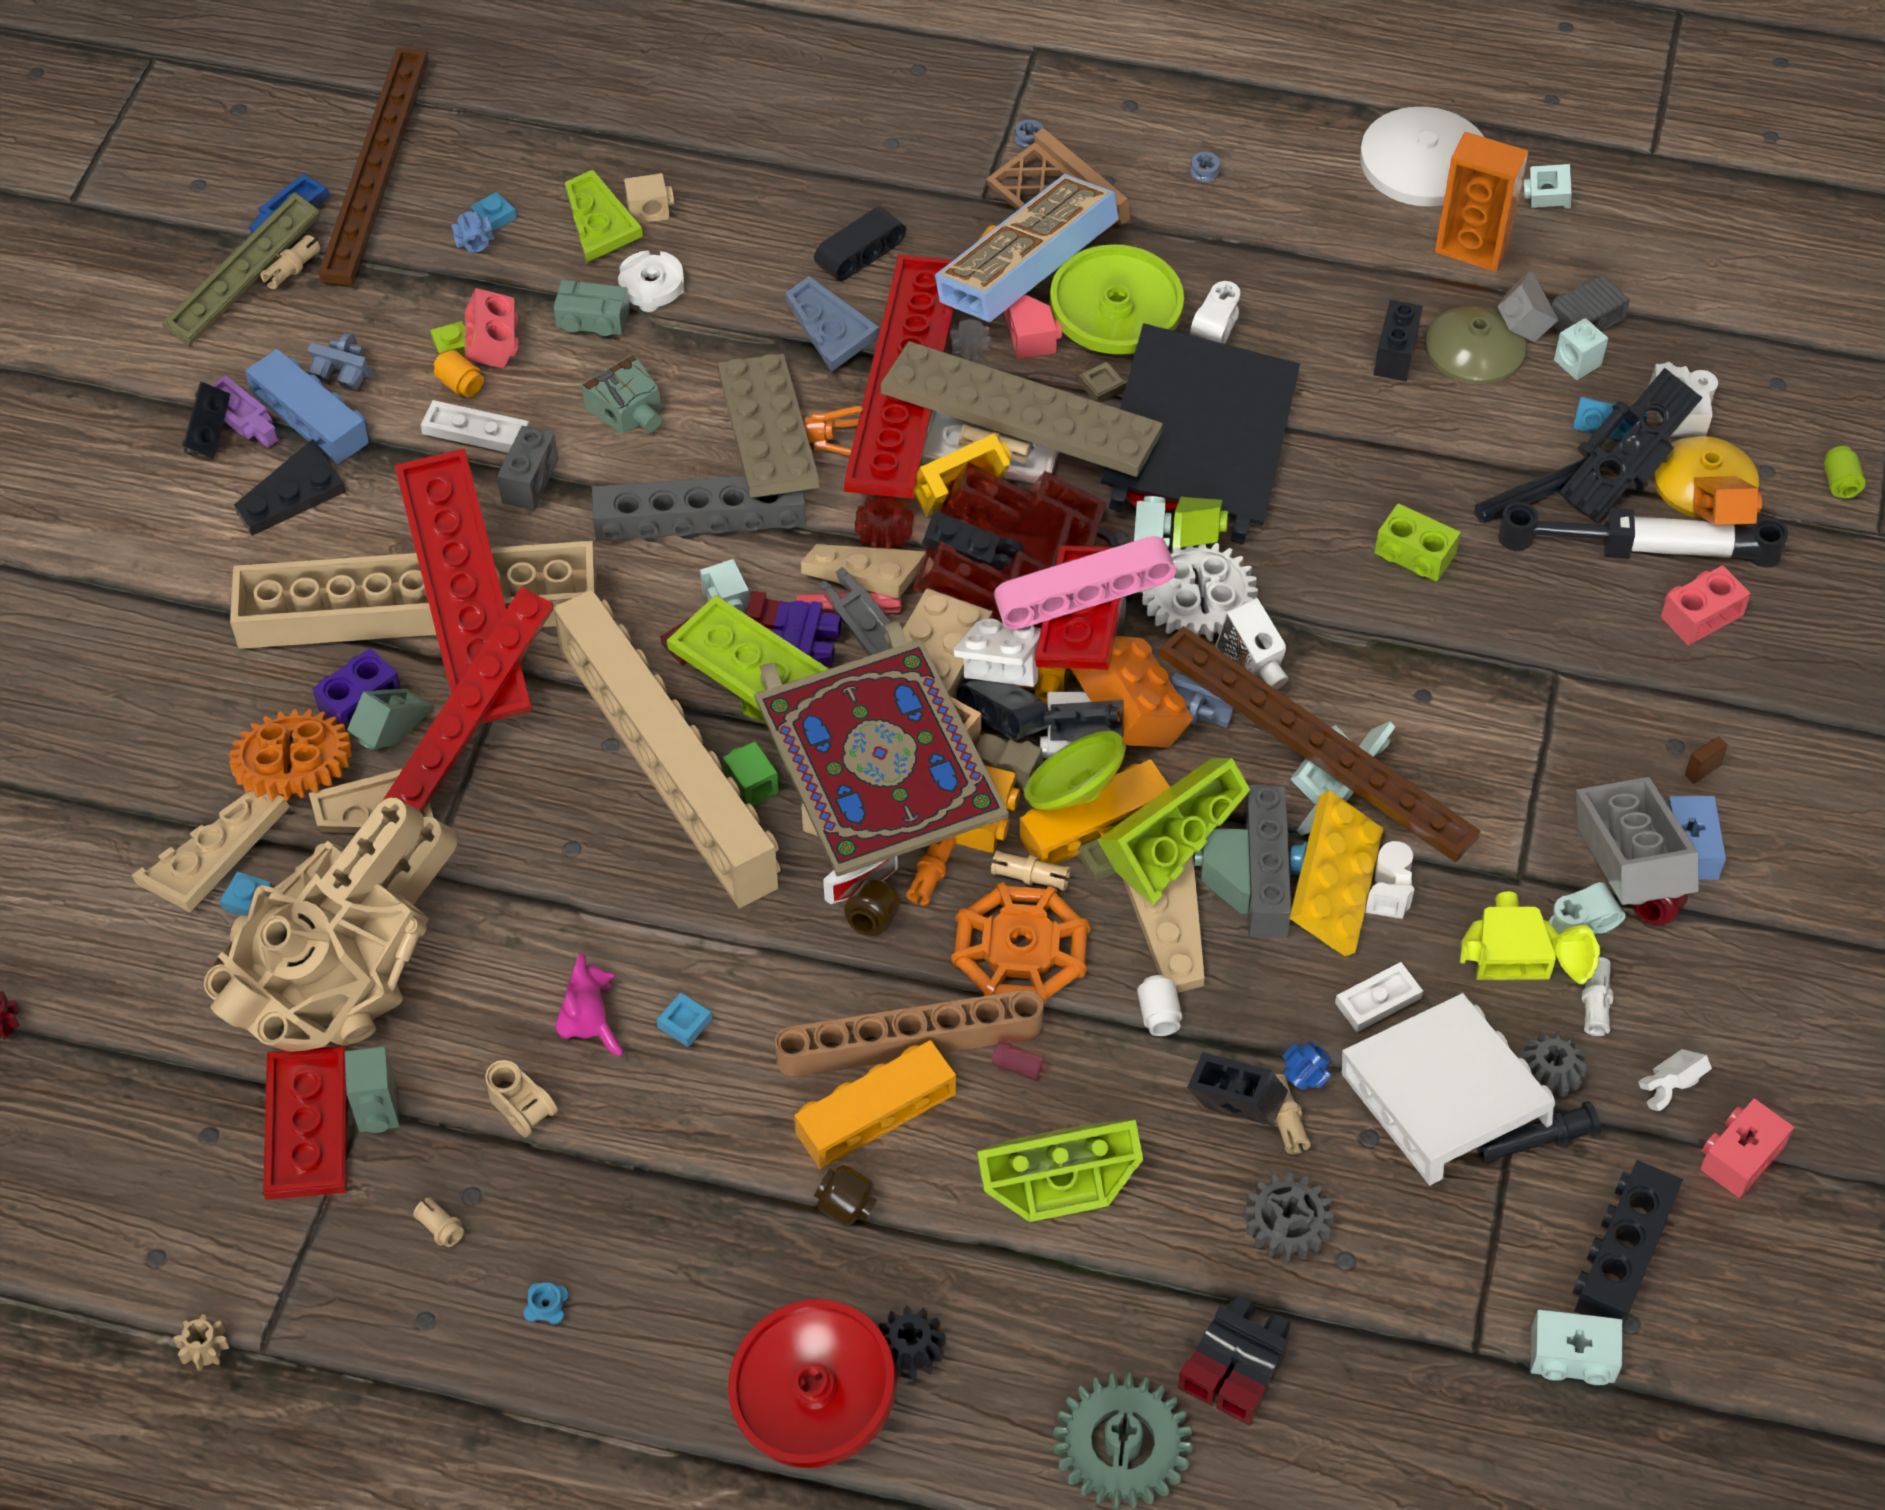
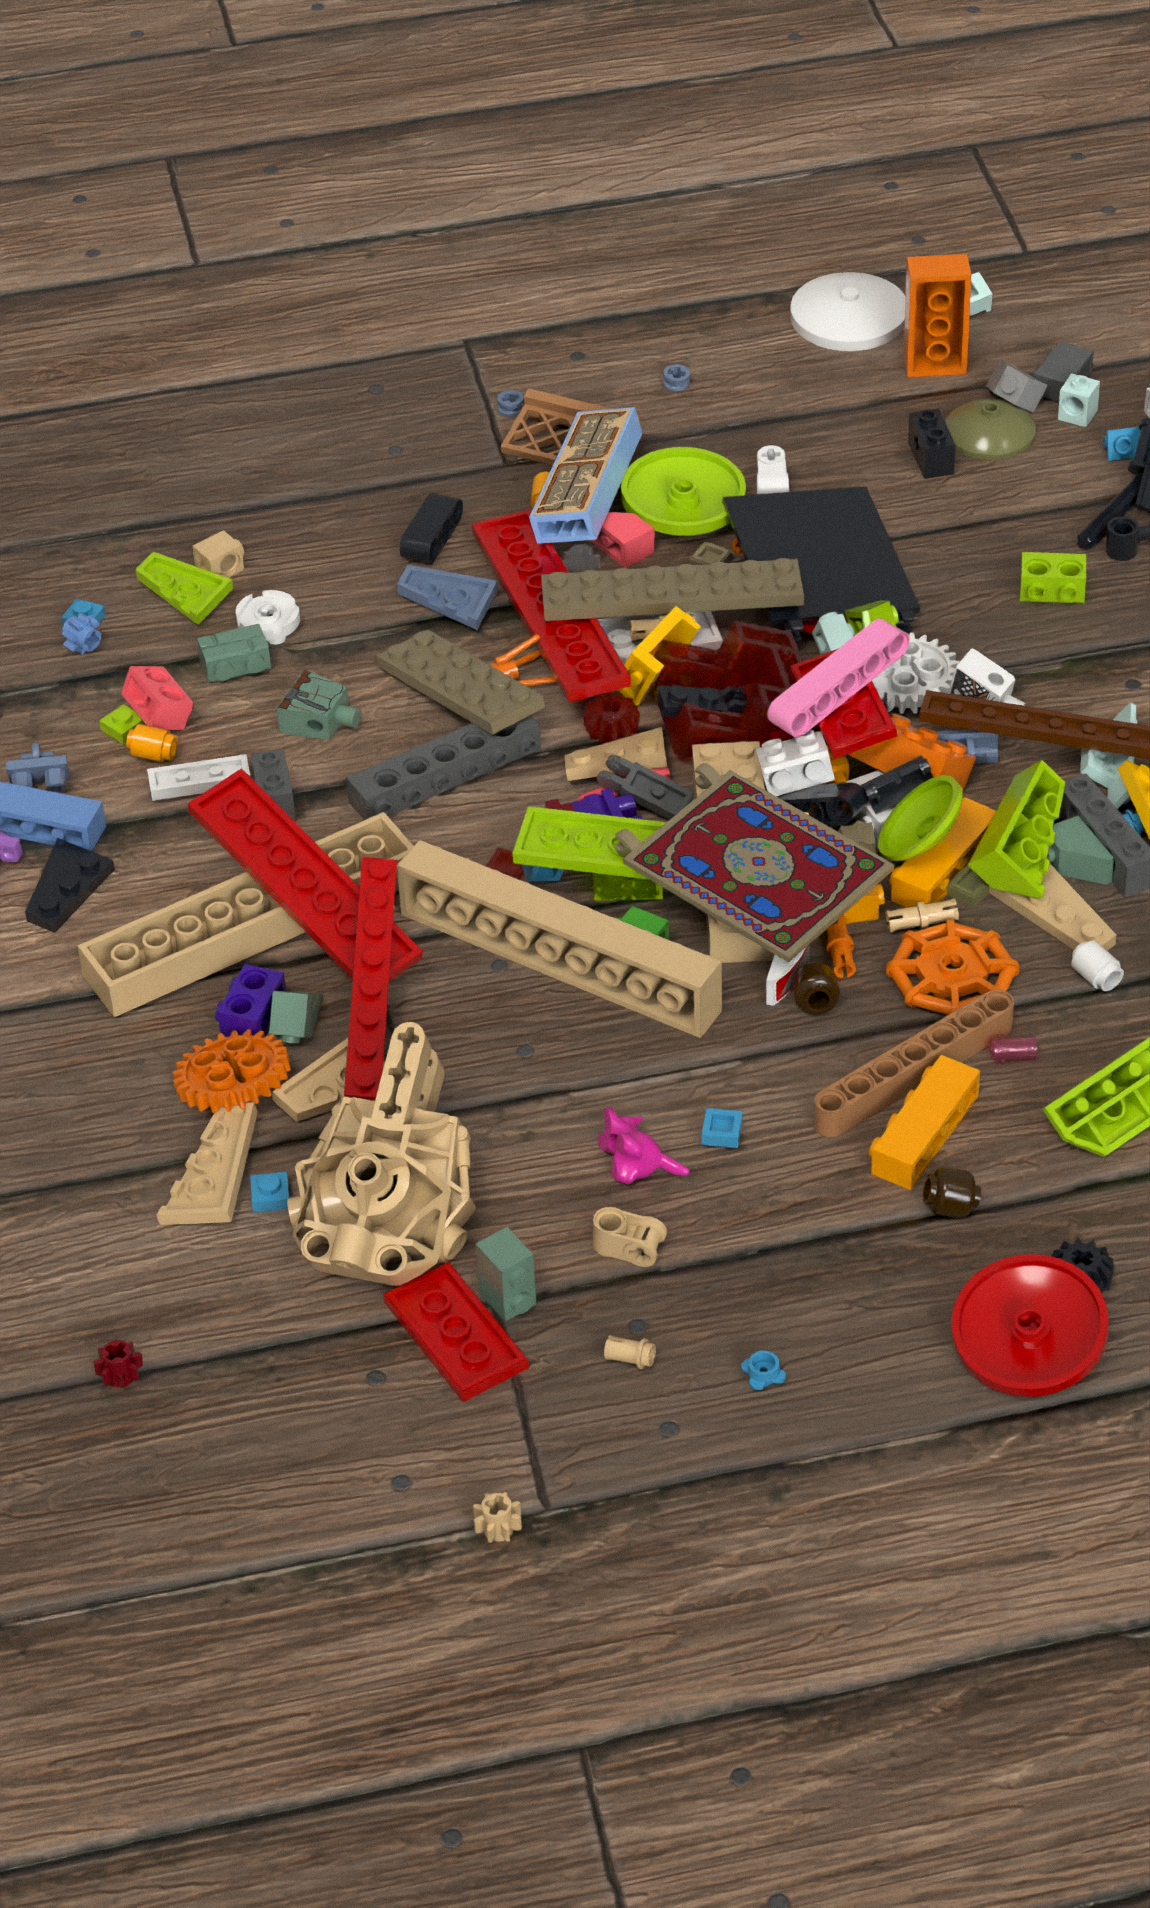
camera: 25 degrees left, 10 degrees down
(726, 583) = (509, 810): light aqua brick -> none

